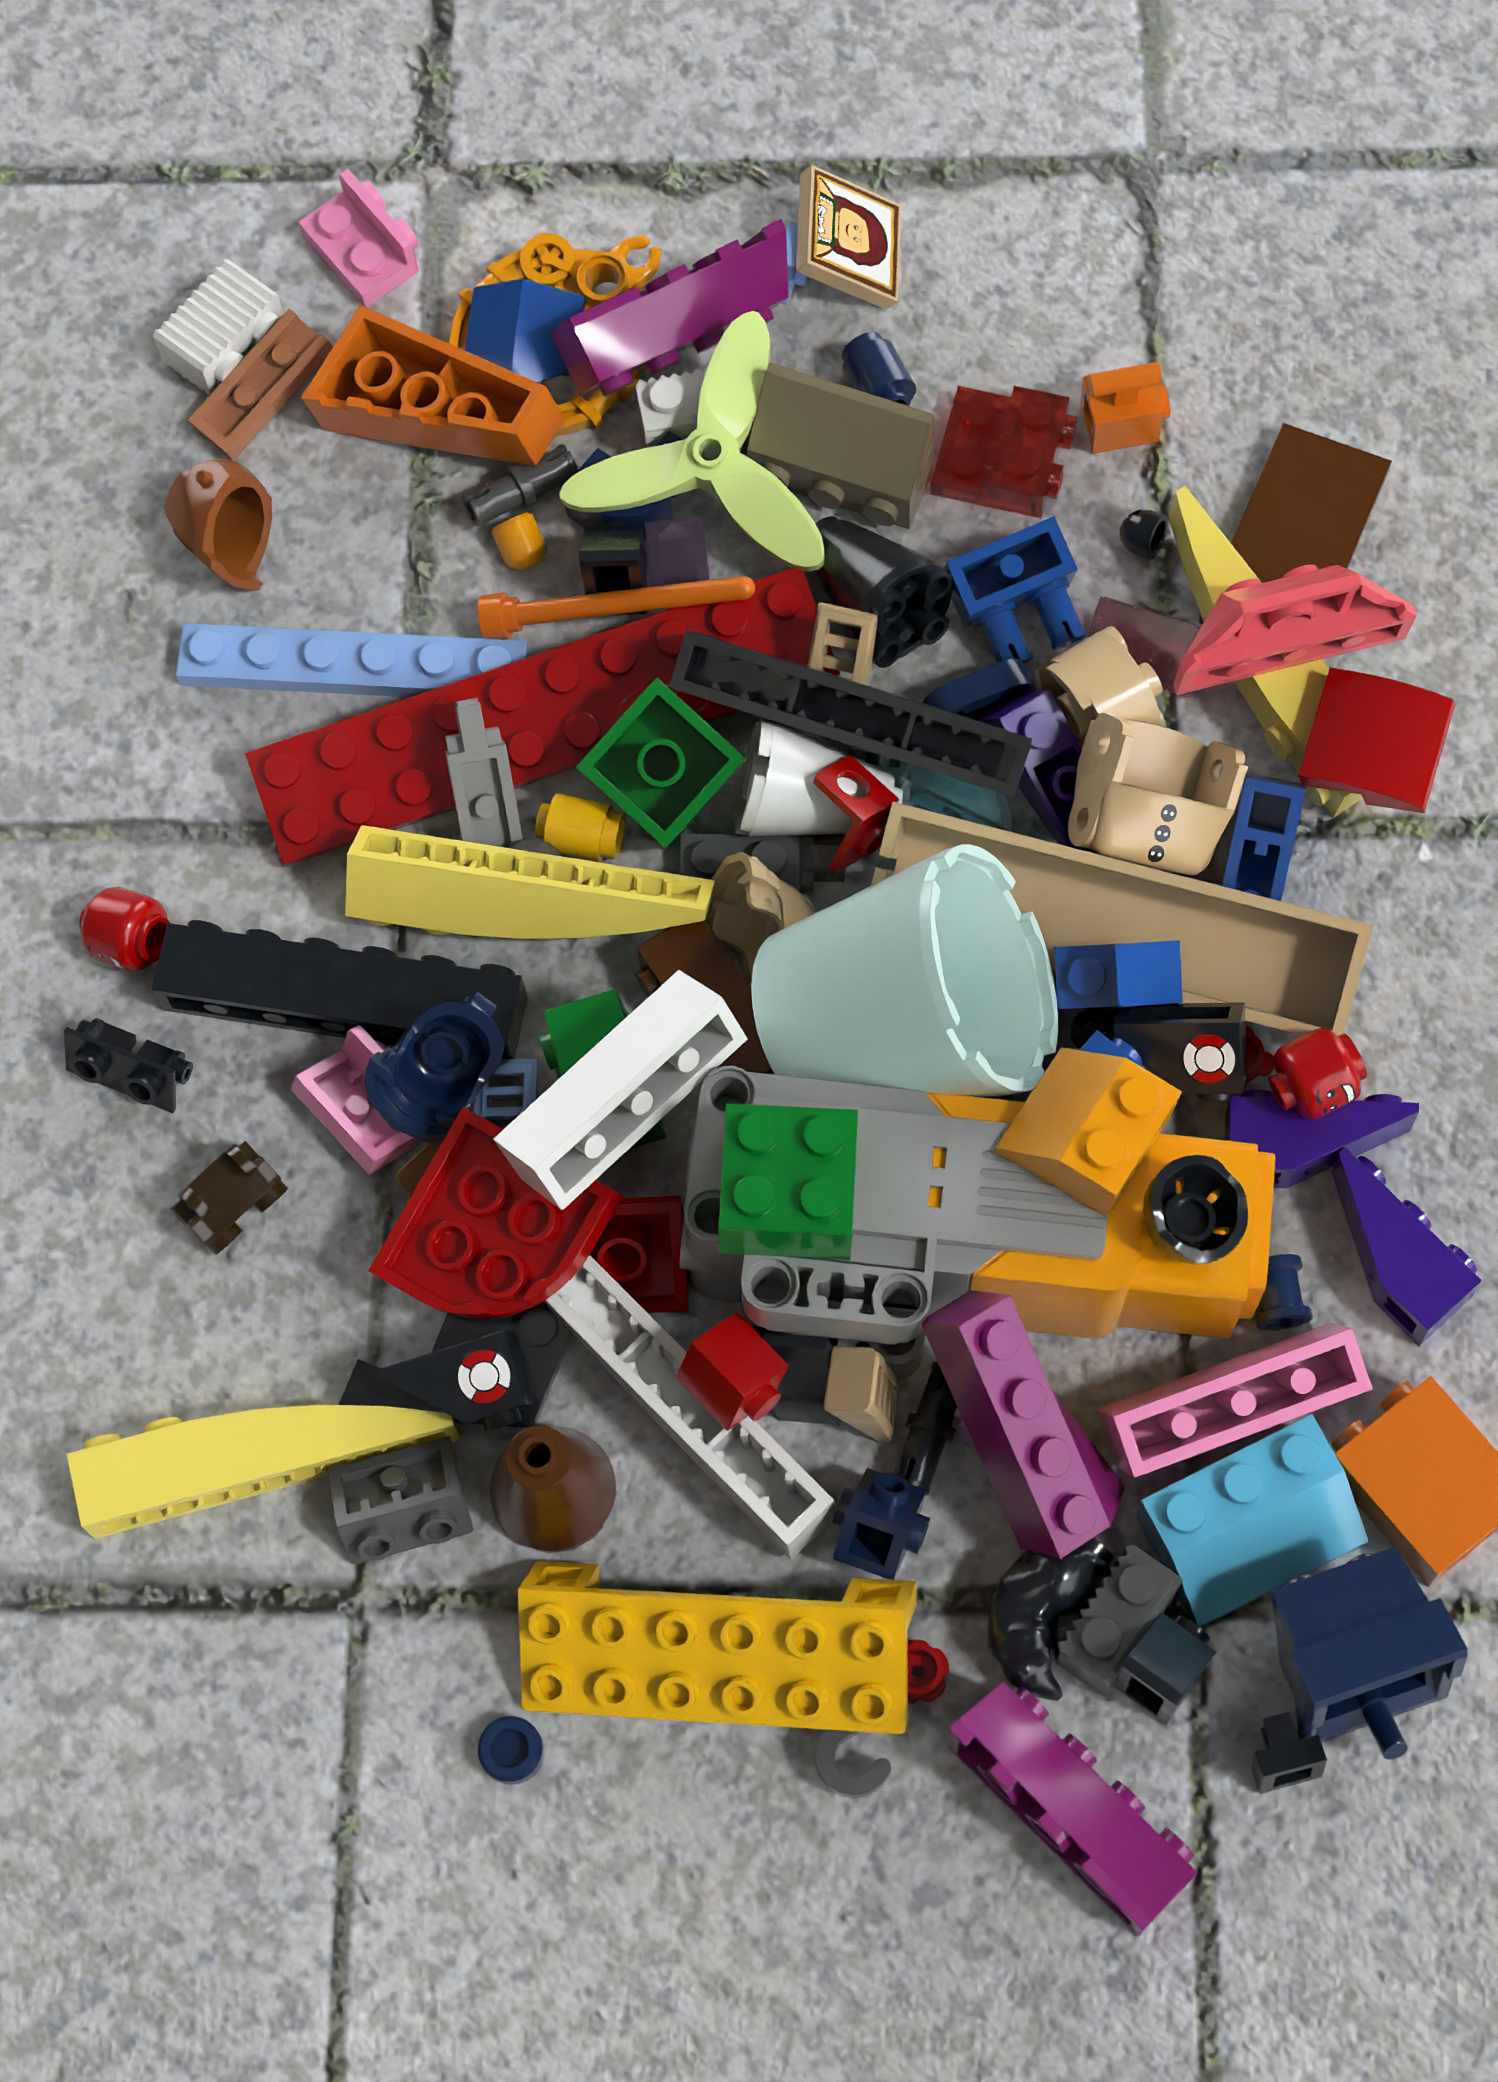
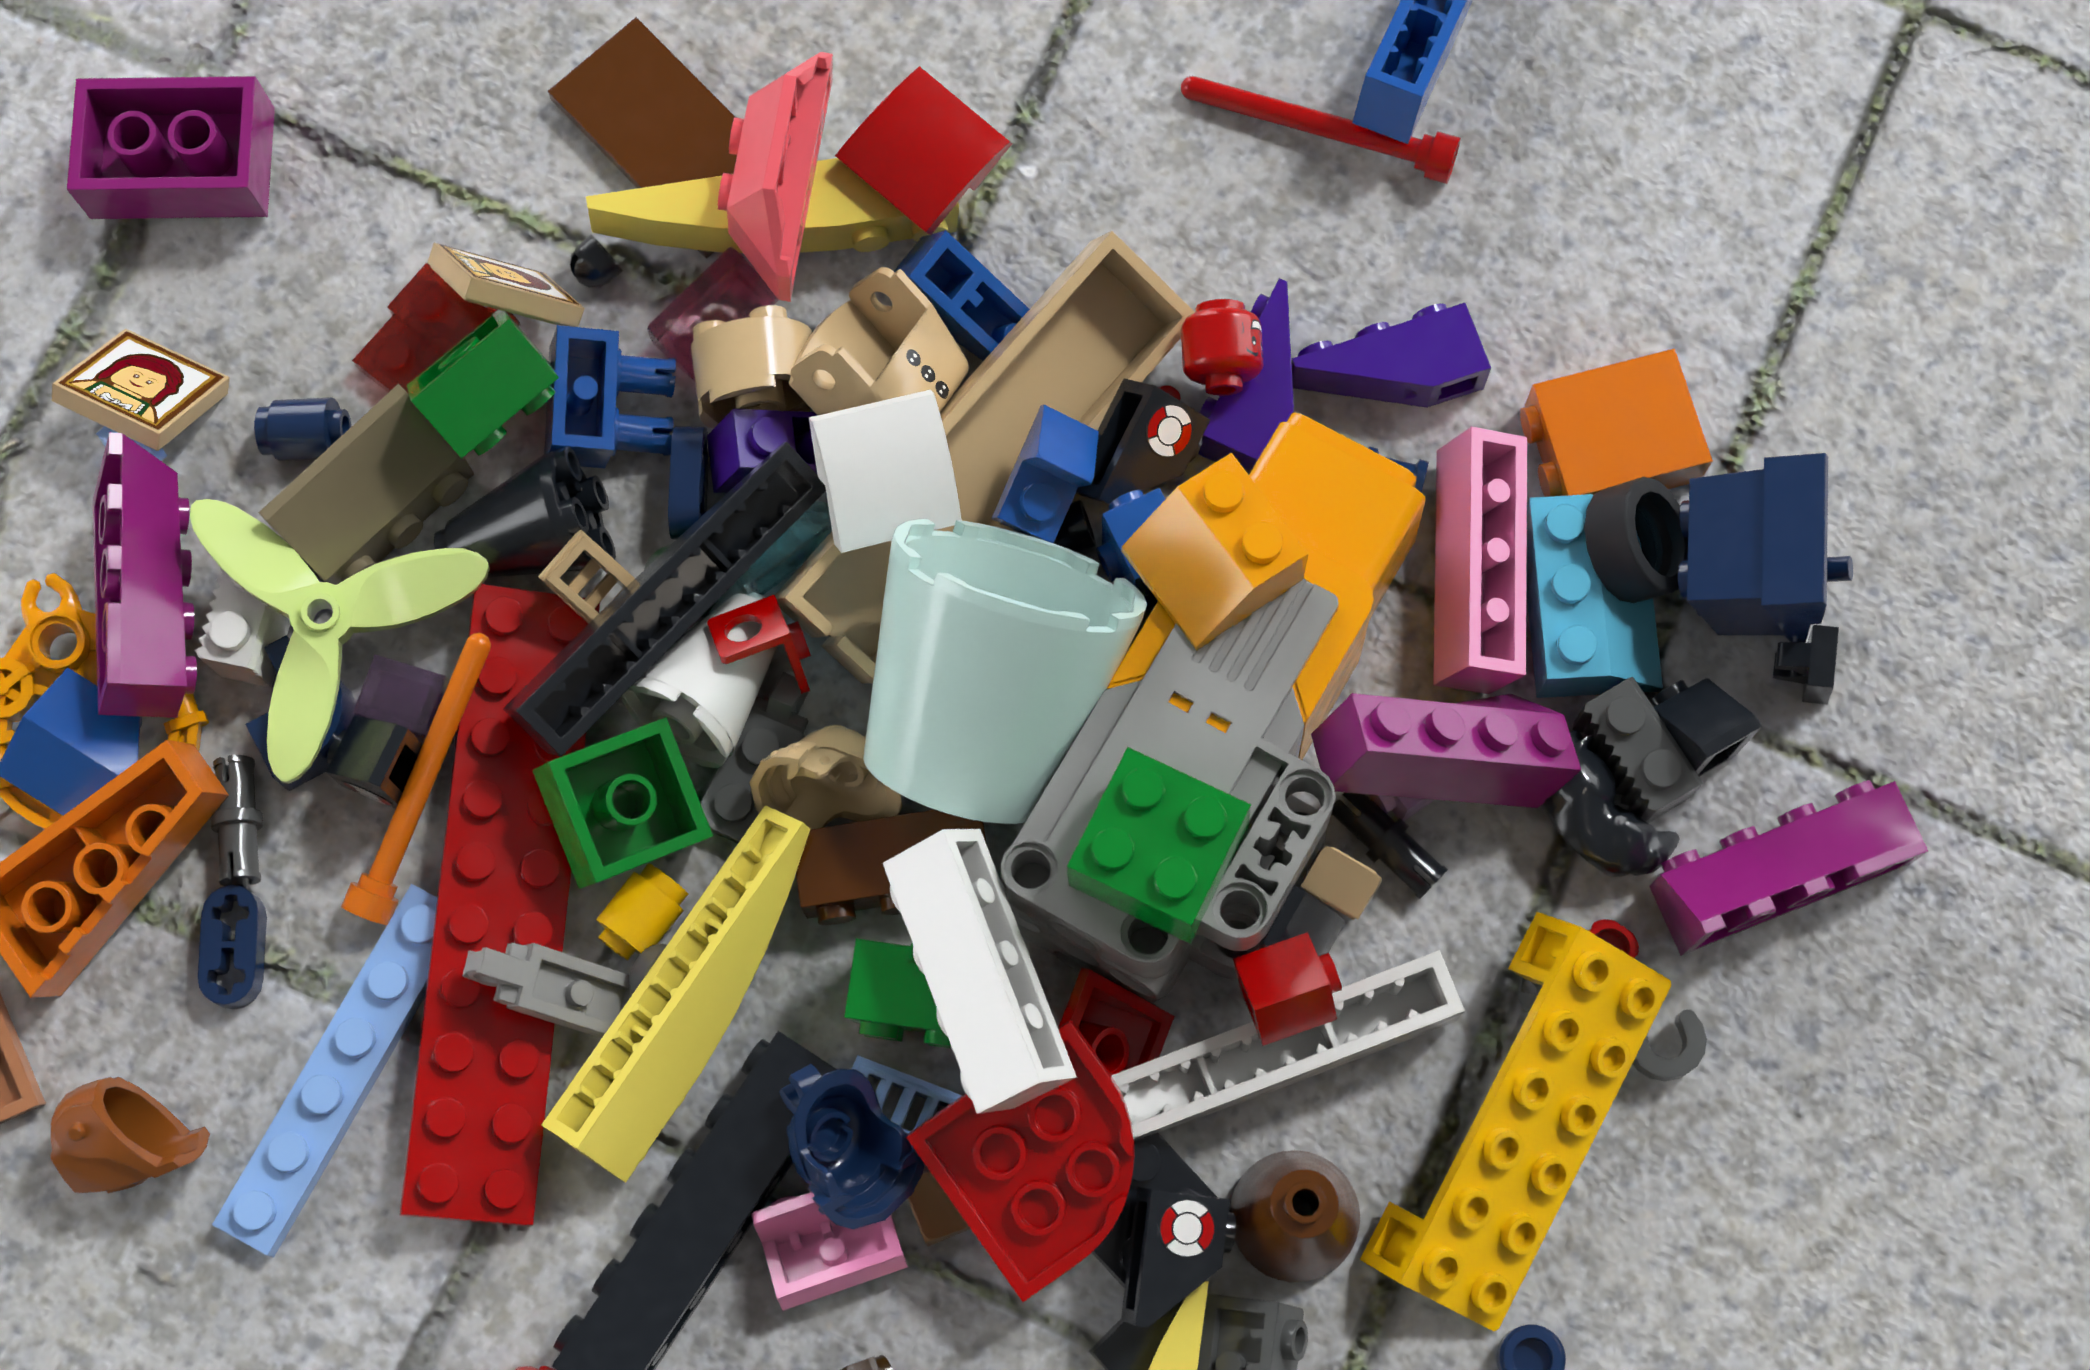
camera: 70 degrees left, 5 degrees up
(416, 533) = (217, 945): none -> dark blue beam
(520, 542) = (295, 847): light orange piece -> none
(880, 1523) = (1466, 921): dark blue brick -> none
(971, 480) = (483, 385): none -> green brick
(1044, 825) = (884, 468): none -> white slope
(1072, 159) = (171, 147): none -> magenta brick
(1072, 462) = (505, 286): none -> tan tile
(1124, 407) = (458, 213): orange brick -> none
(1186, 1221) = (1336, 511): black helmet -> none
(1303, 1498) = (1613, 543): none -> black tyre

